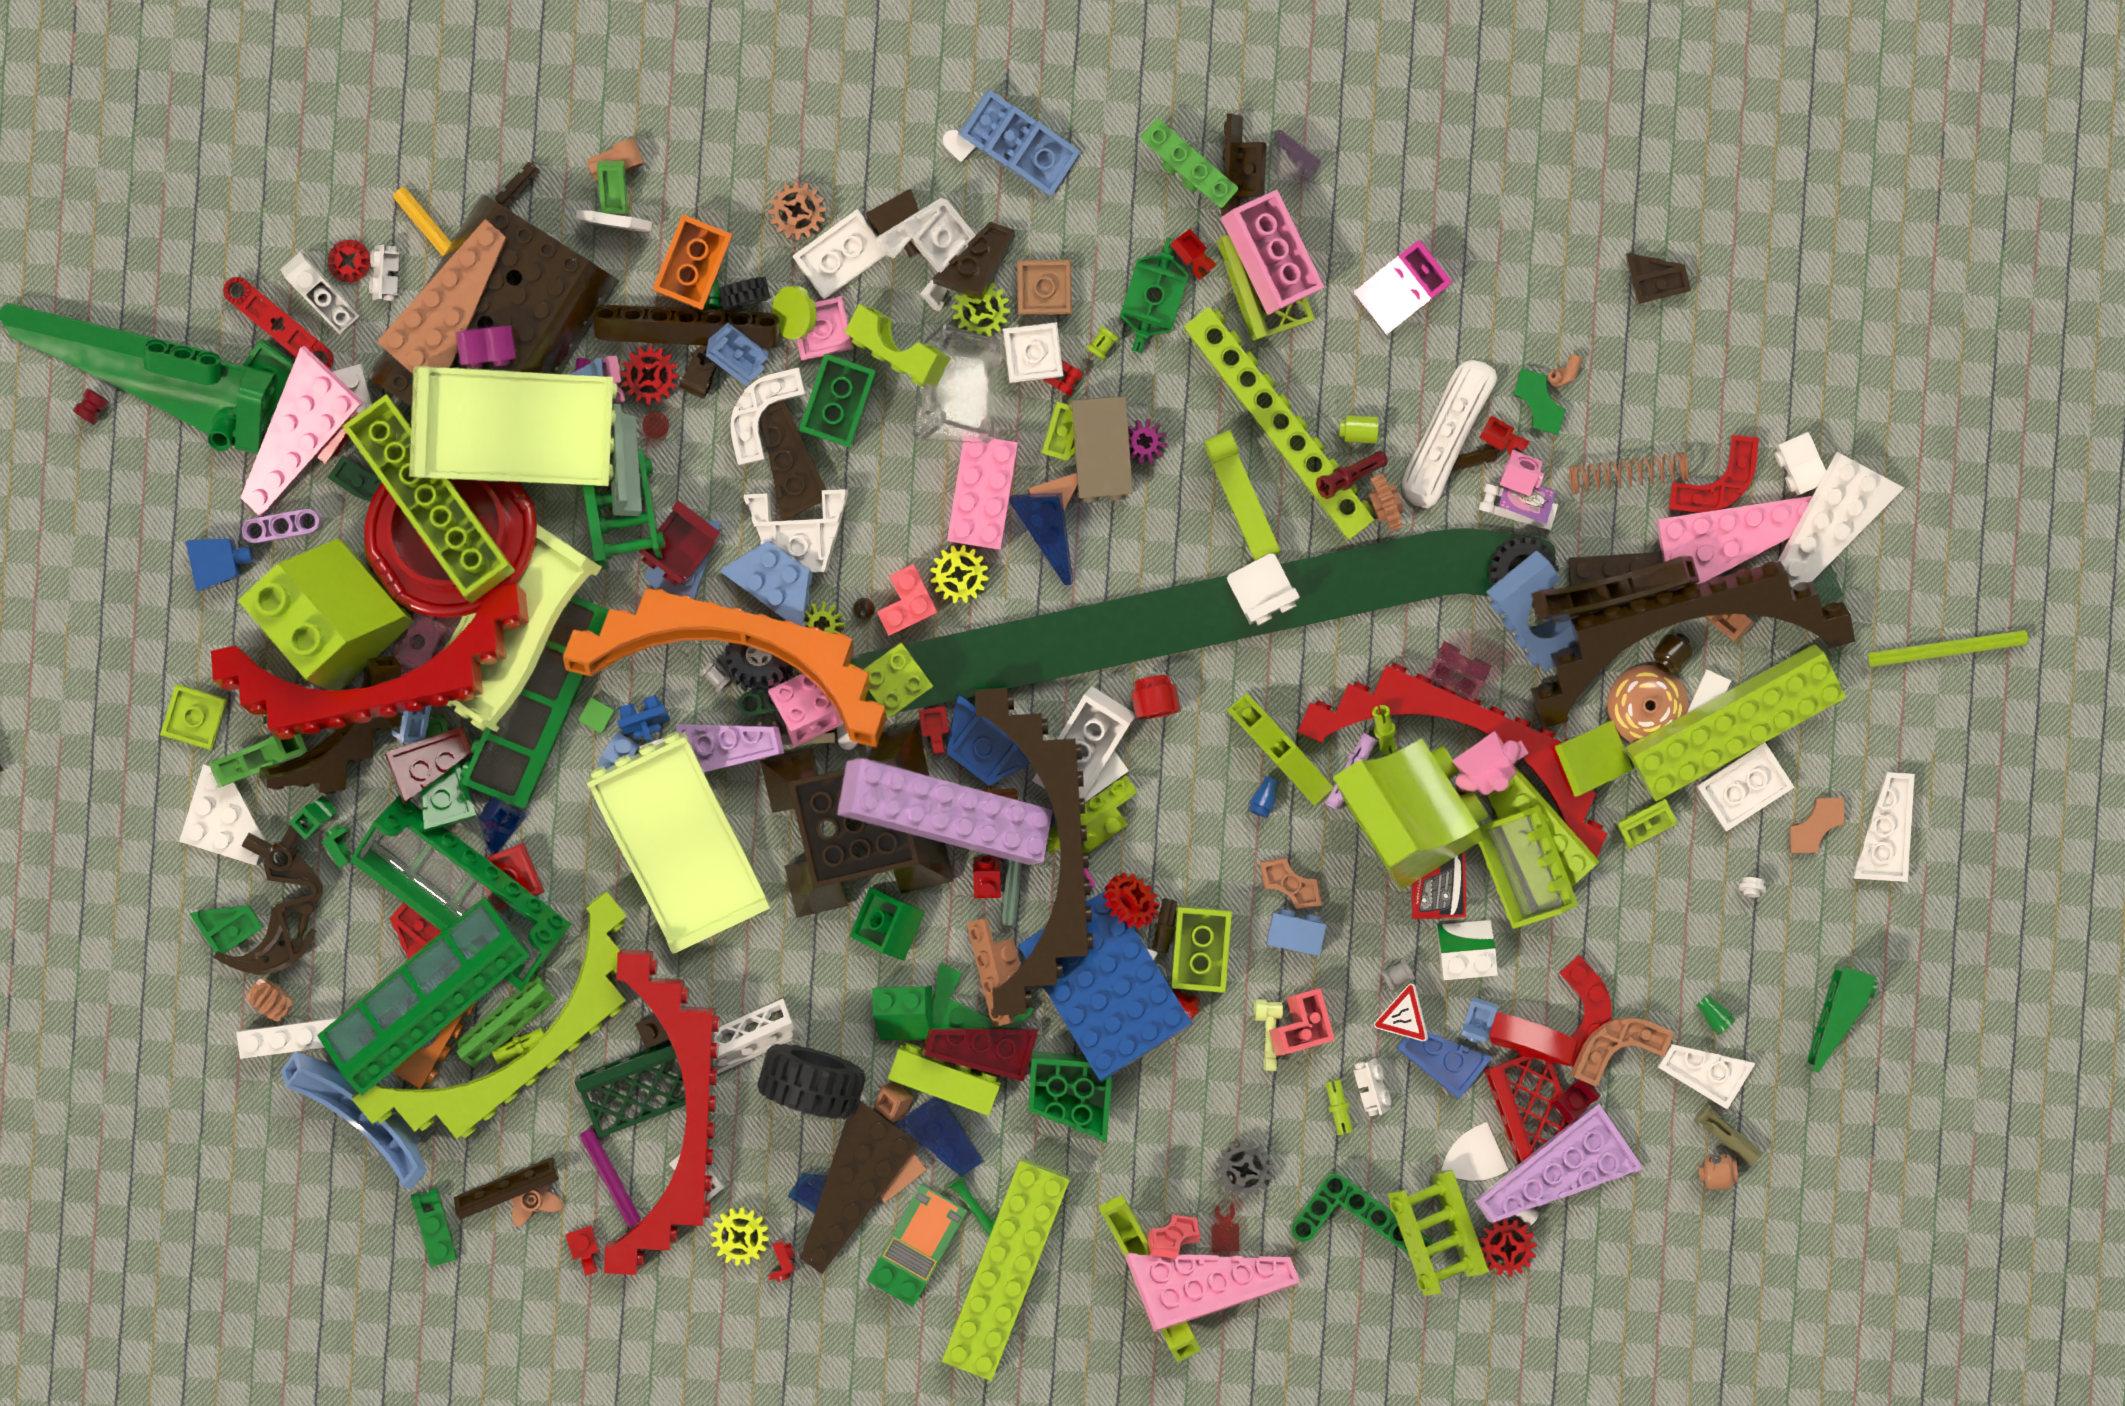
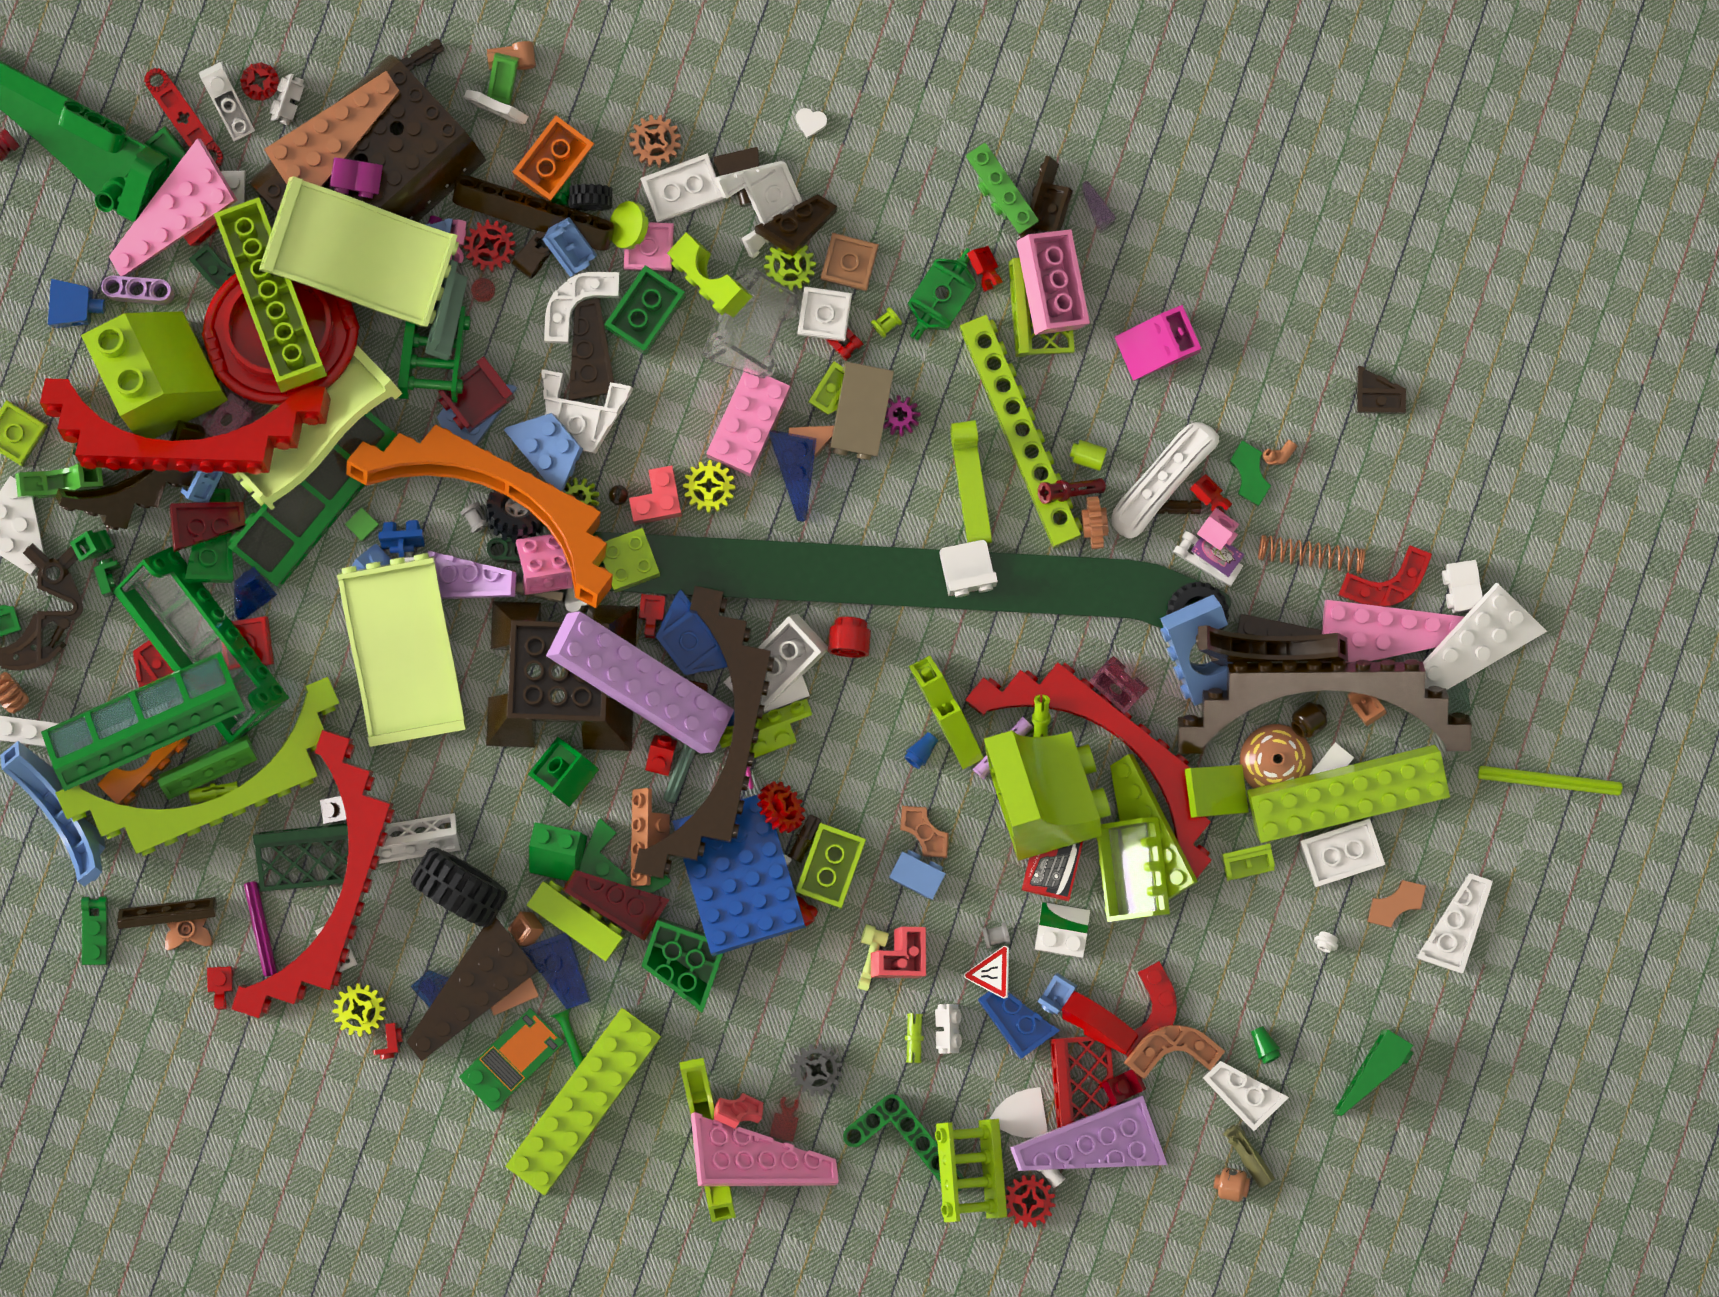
camera: 15 degrees right, 5 degrees down
(422, 220) = (332, 63): yellow axle -> none
(1019, 142) = (861, 134): medium blue slope -> none
(1488, 765) = (1122, 769): bright pink torso -> none

